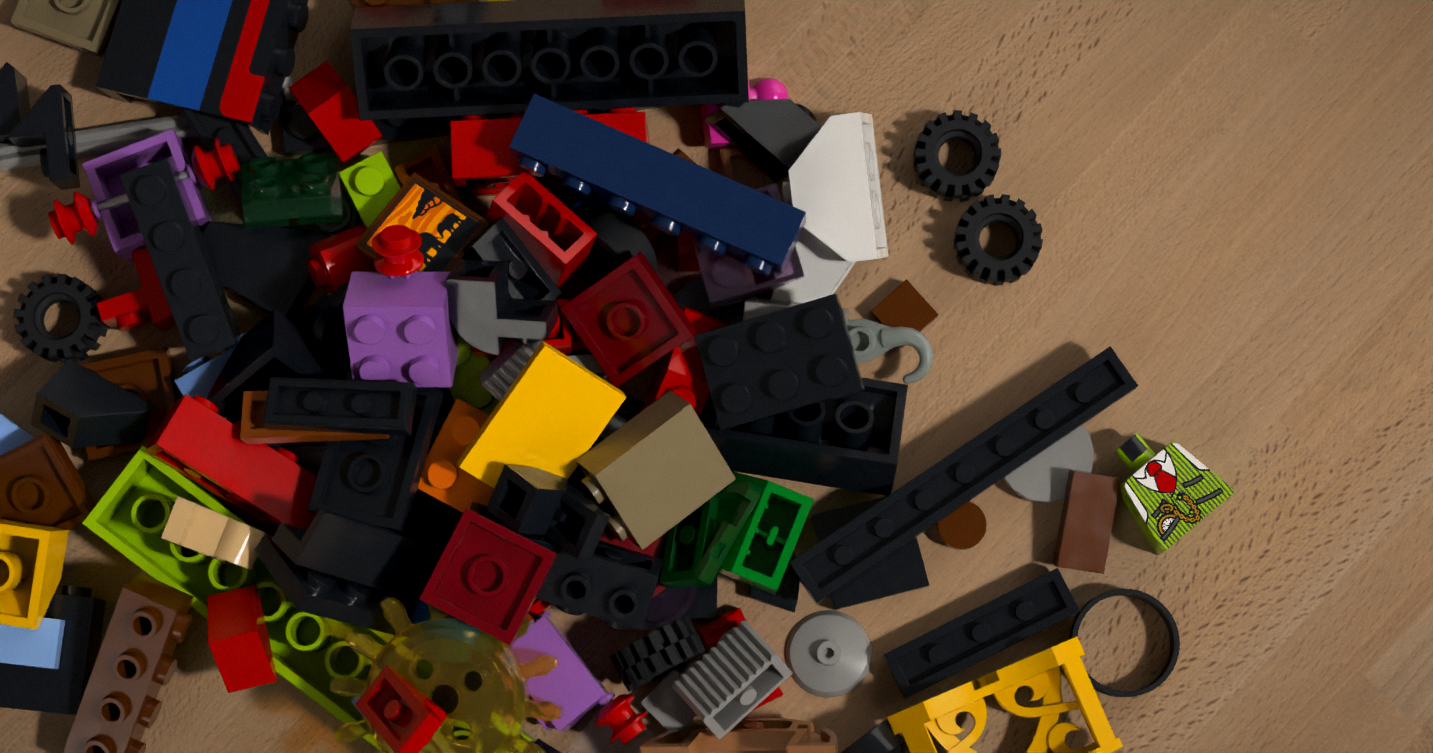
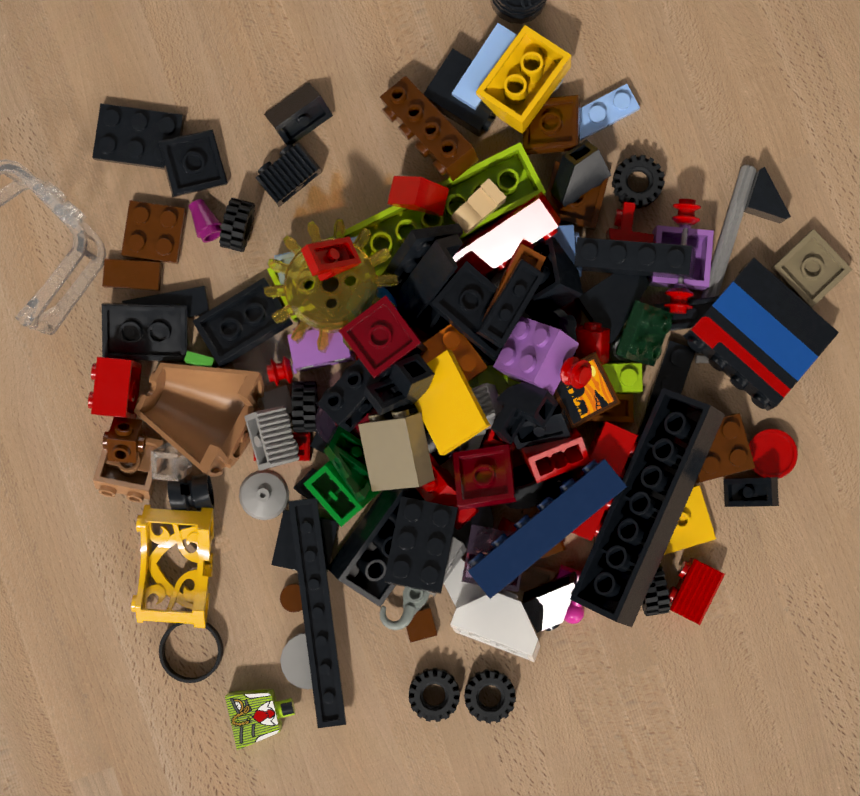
camera: 110 degrees right, 5 degrees up
(52, 124) = (743, 225): black slope -> none
(335, 111) = (678, 376): red slope -> none
(981, 633) = (233, 579): black plate -> none
(1086, 521) = (262, 664): reddish brown tile -> none

